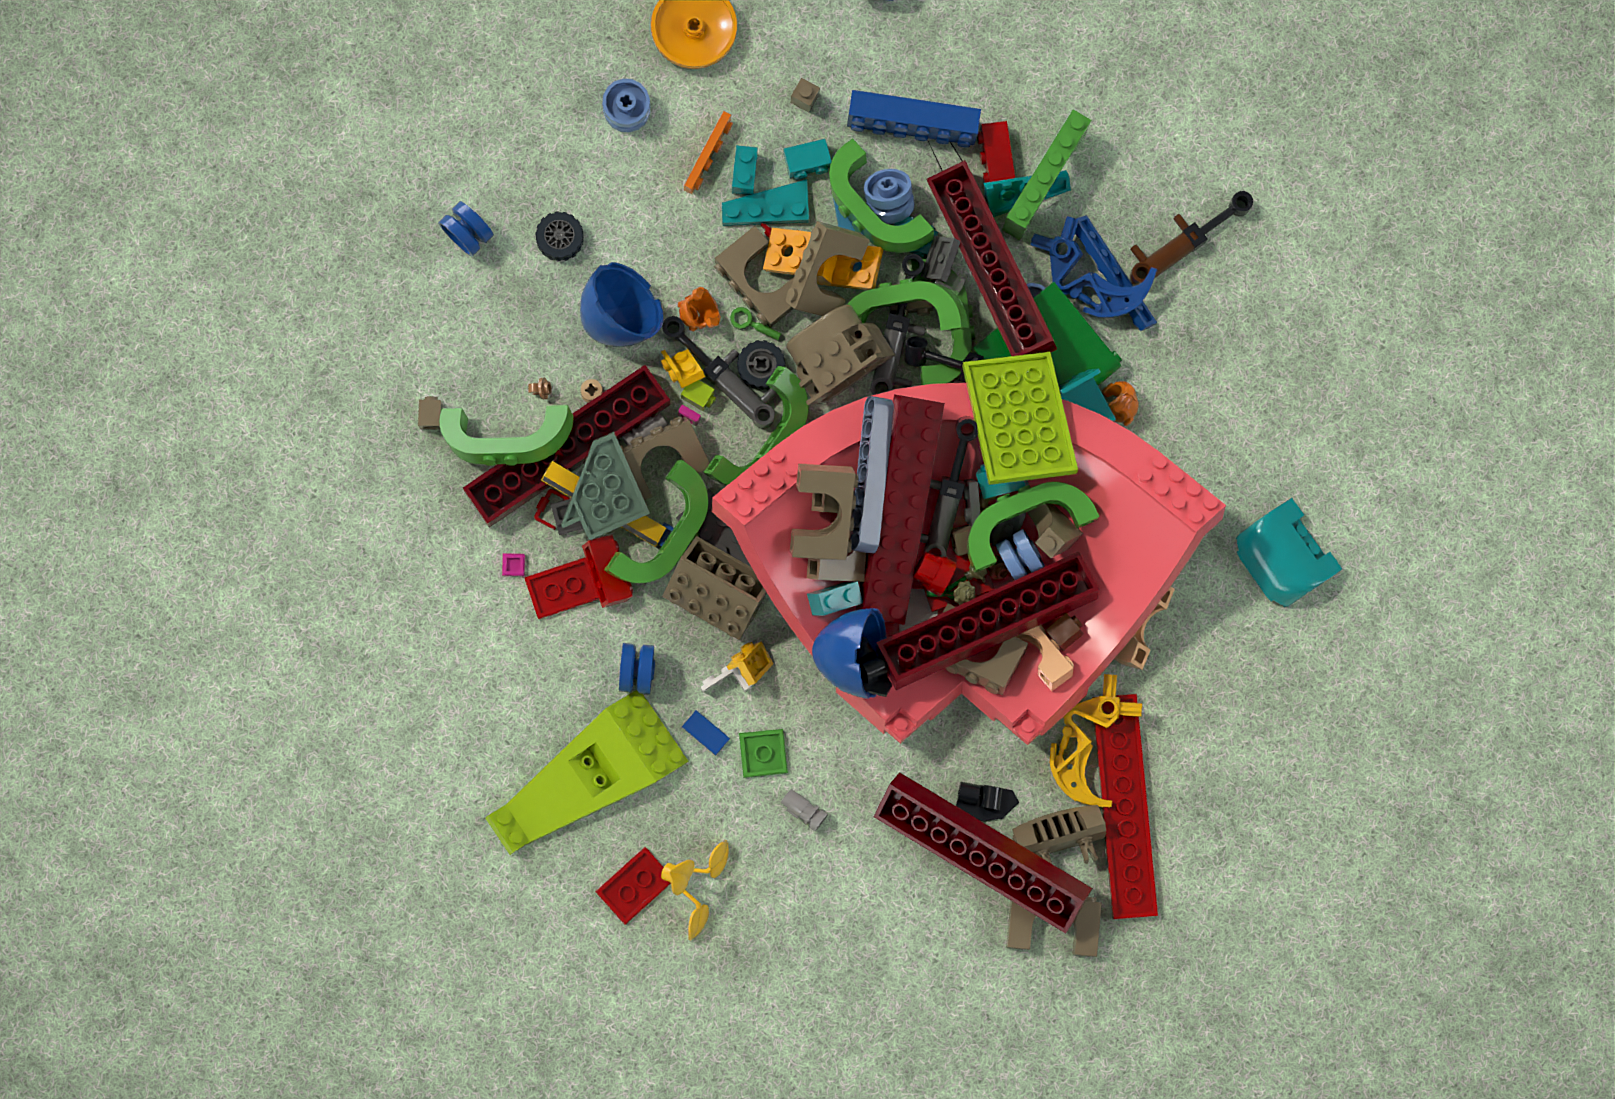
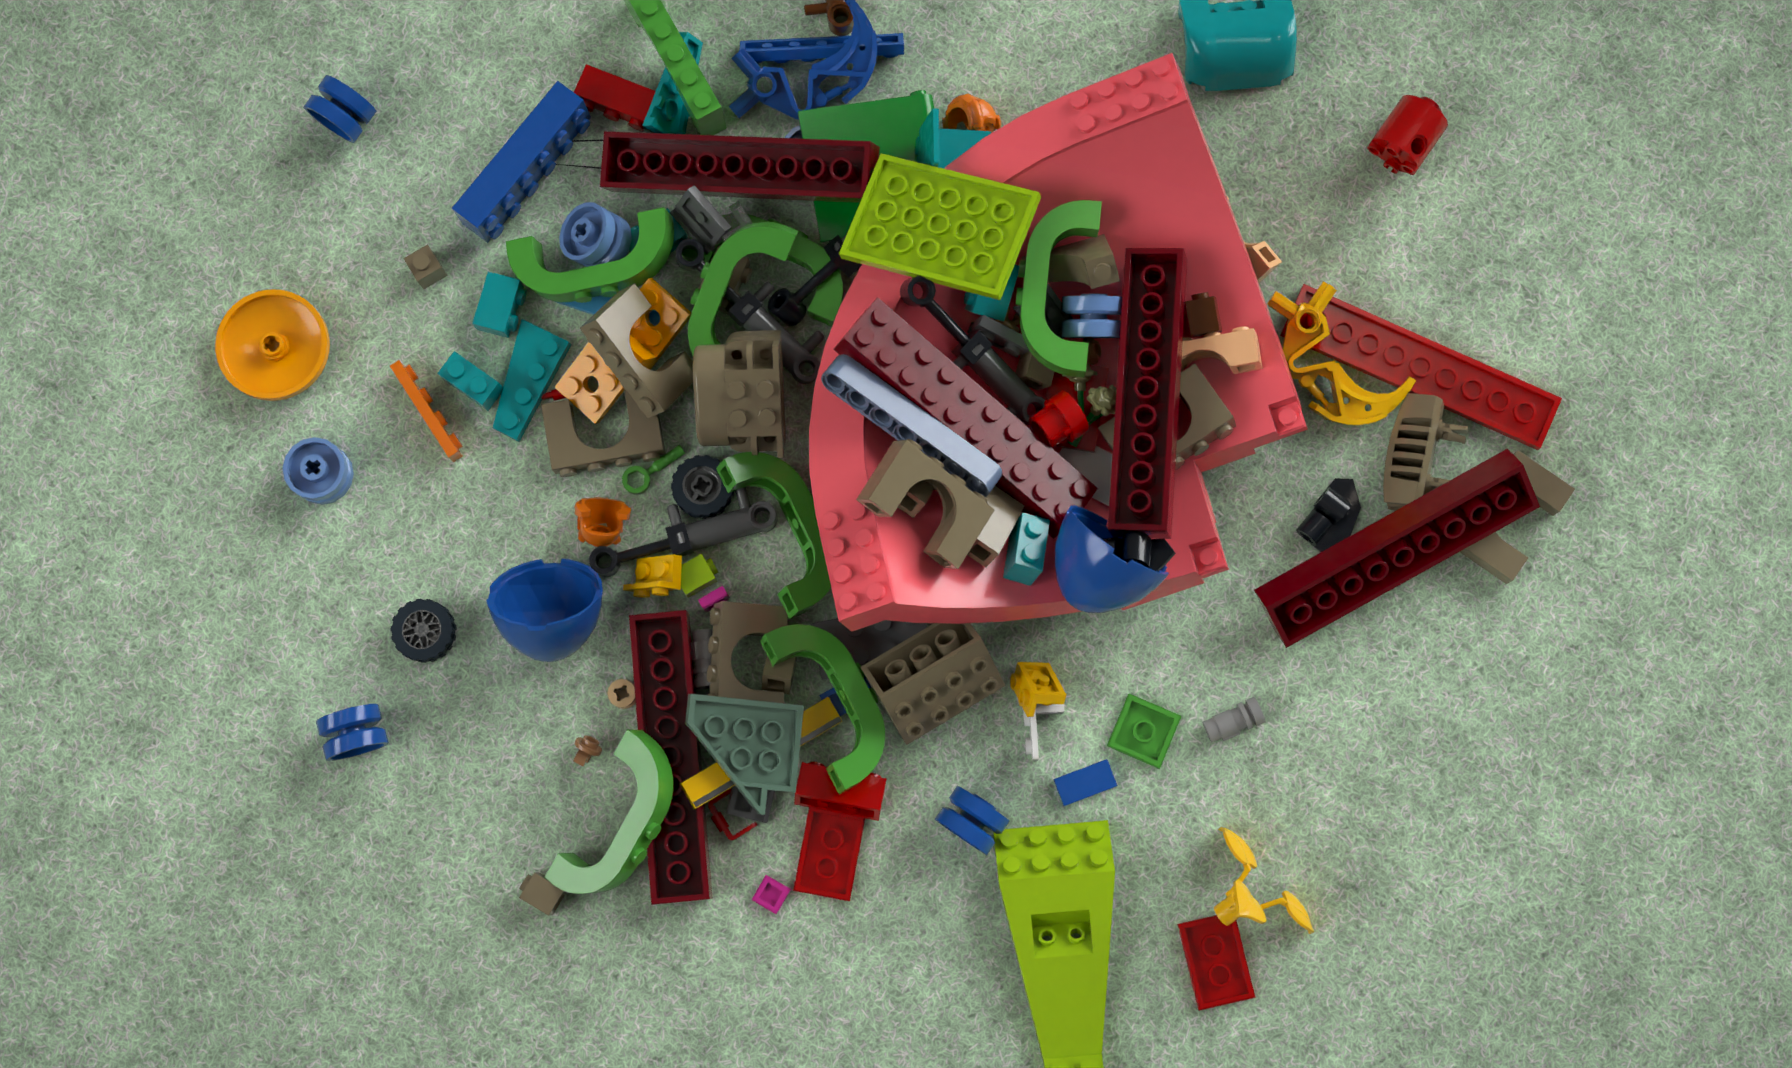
camera: 45 degrees left, 0 degrees up
(661, 488) = (779, 677): none -> dark tan brick
(1285, 708) = (1409, 134): none -> red cylinder

